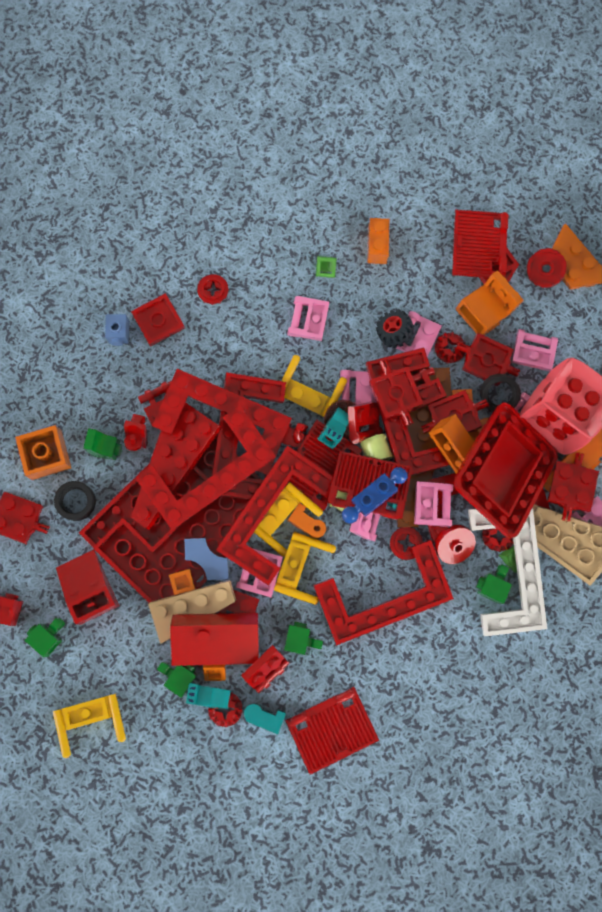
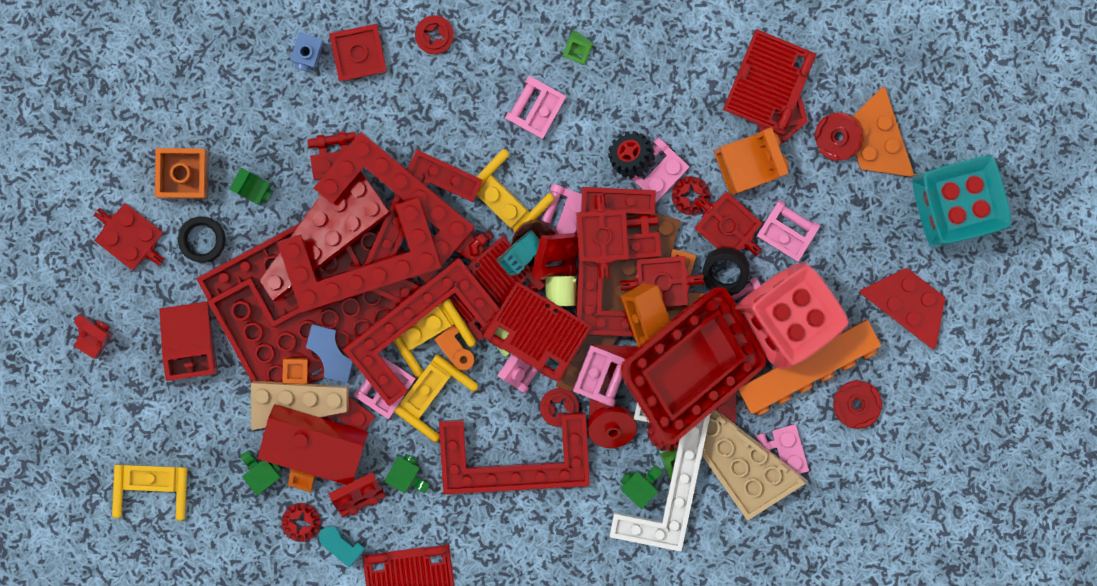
camera: 20 degrees right, 10 degrees up
(44, 638) = (126, 383): green brick -> none
(135, 433) = (292, 186): red hips -> none
(207, 696) = (286, 503): teal leg -> none
(374, 495) = (536, 346): blue plate -> none
(378, 241) = (649, 38): orange brick -> none
(573, 486) = (765, 406): red plate -> none

